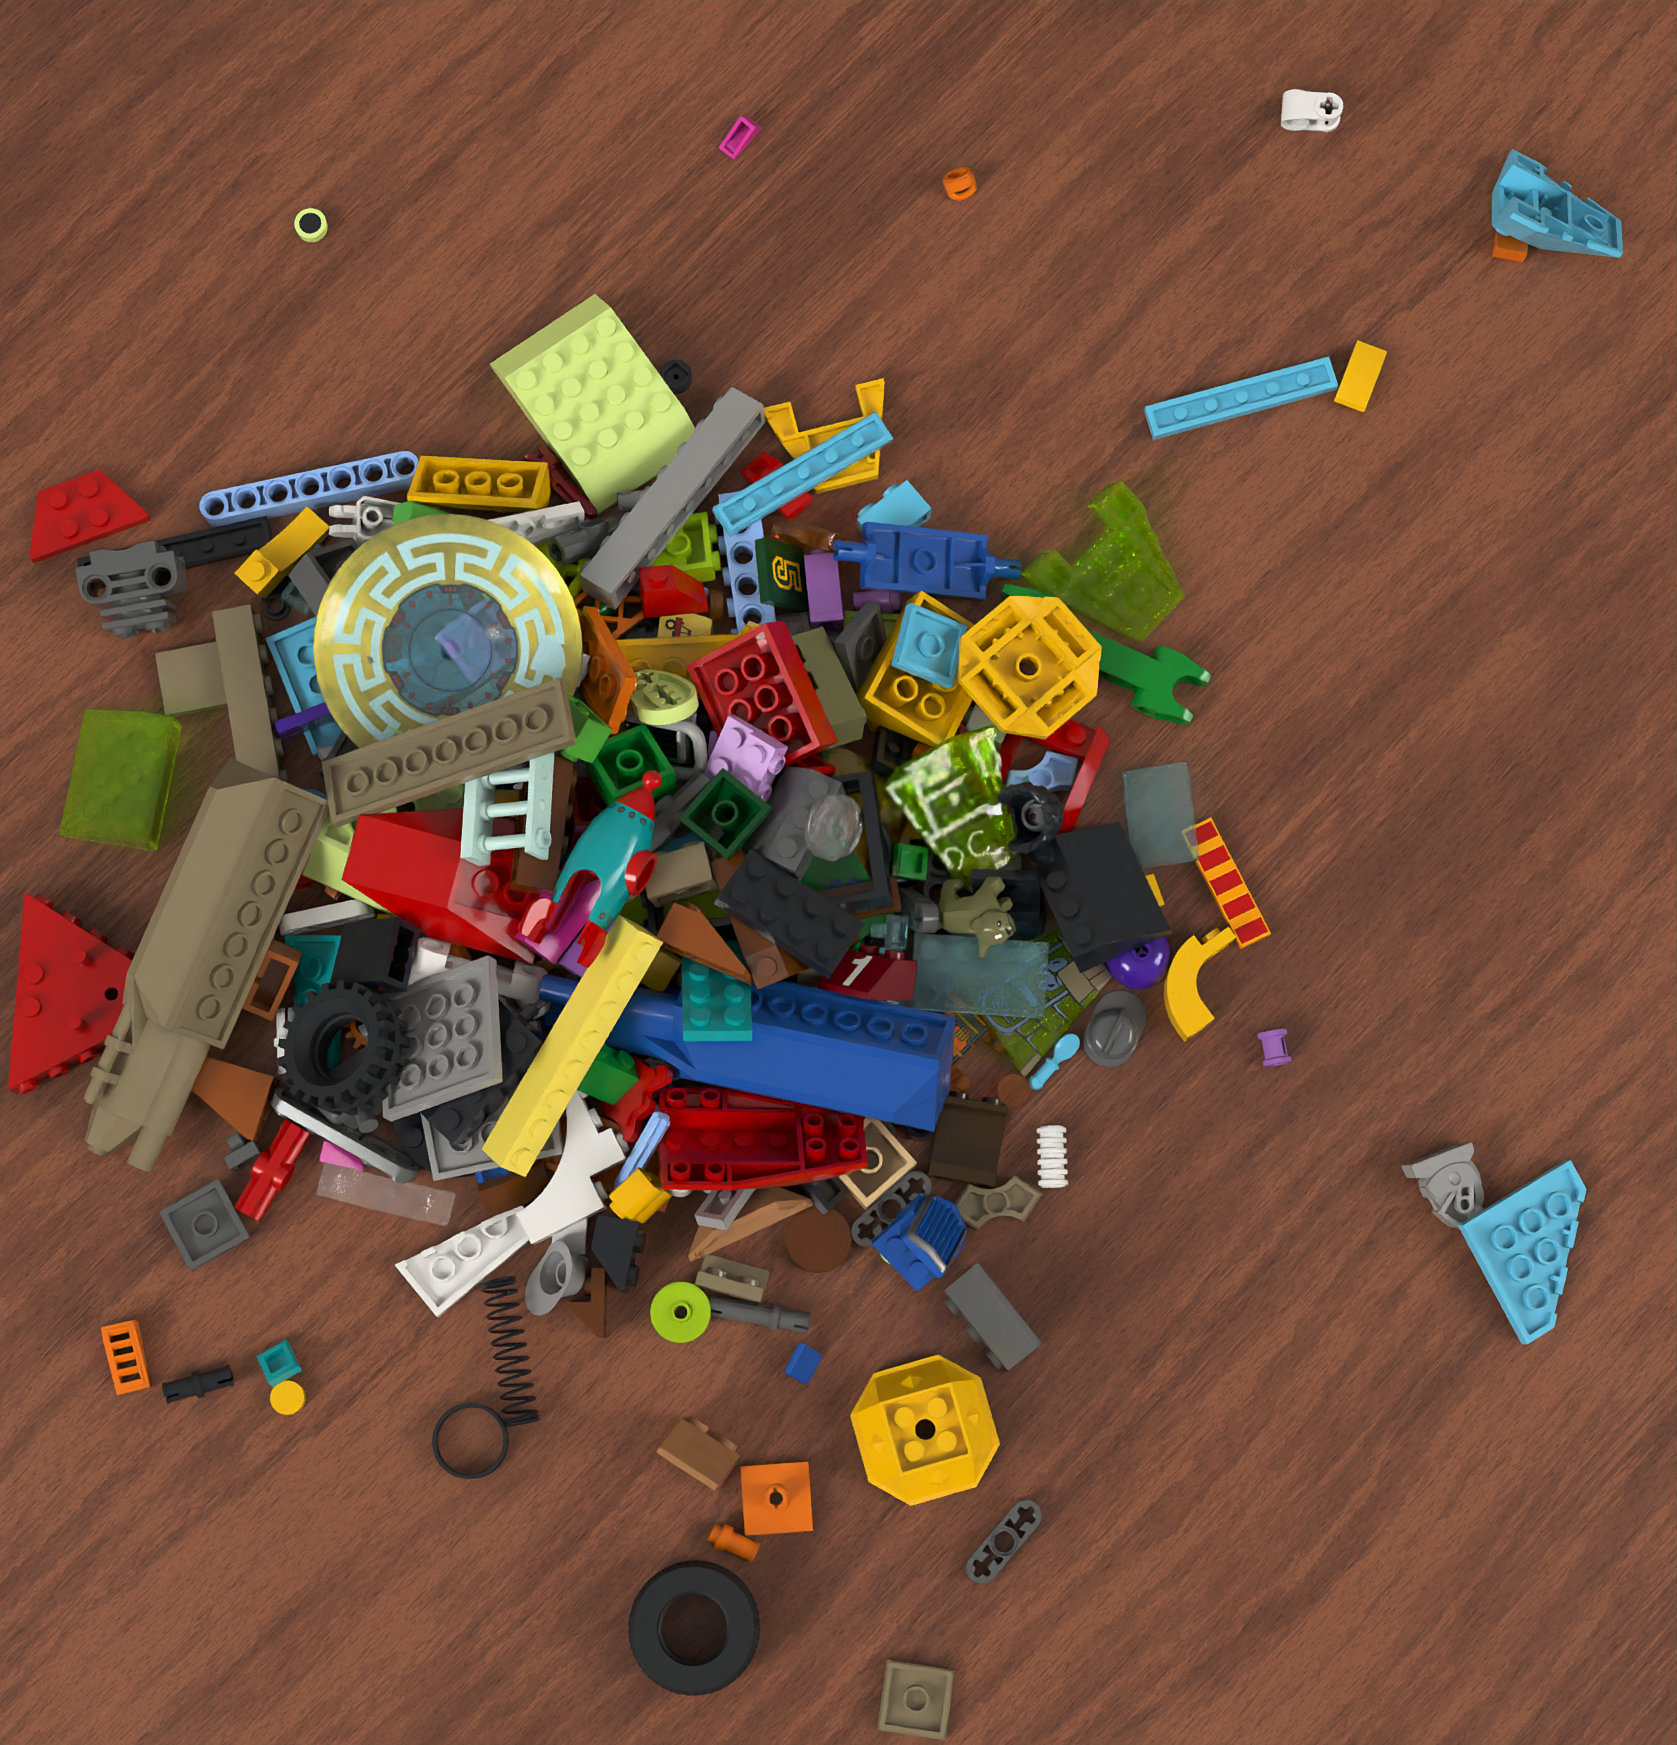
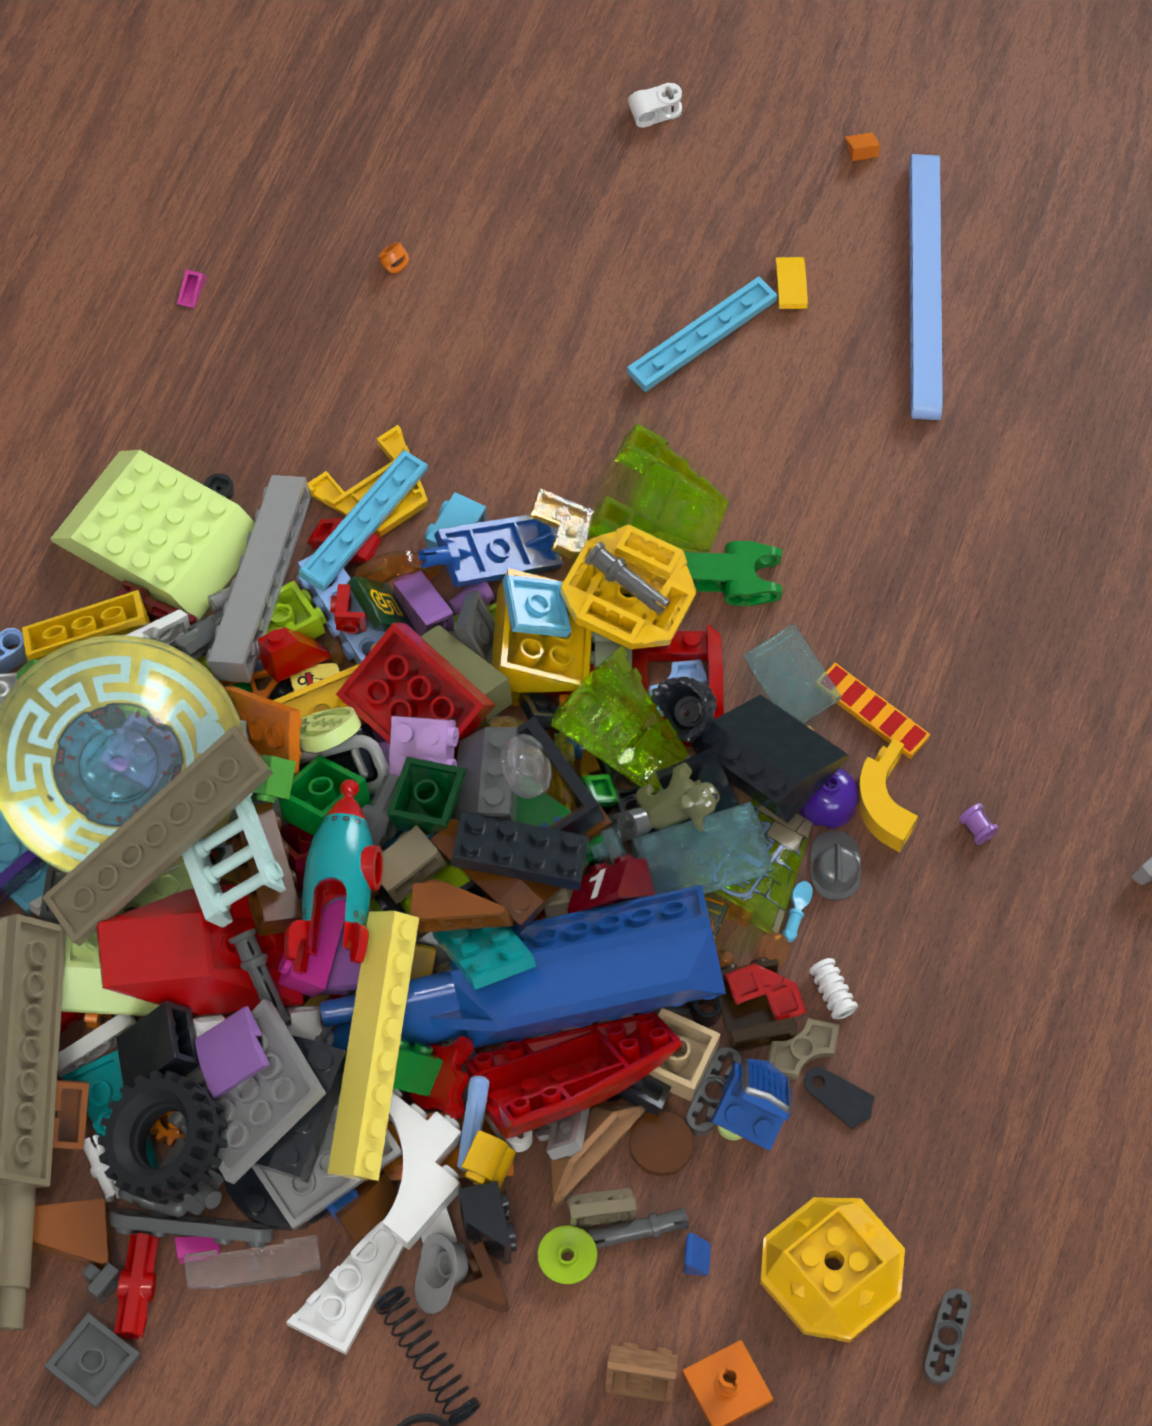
camera: 25 degrees left, 15 degrees down
(436, 994) = (231, 1052): none -> medium lavender slope
(497, 910) = (254, 962): none -> dark grey pin
(738, 564) = (344, 619): none -> red bracket
(978, 1121) = (756, 981): none -> red tile
(991, 1318) = (847, 1141): dark grey slope -> none
(1008, 559) = (568, 517): none -> clear yellow plate
(1010, 1266) = (840, 1097): none -> black piece
(1023, 644) = (616, 570): none -> dark grey pin
(1499, 436) = (925, 288): none -> light blue beam
(1548, 214) = (882, 111): medium azure wedge -> none

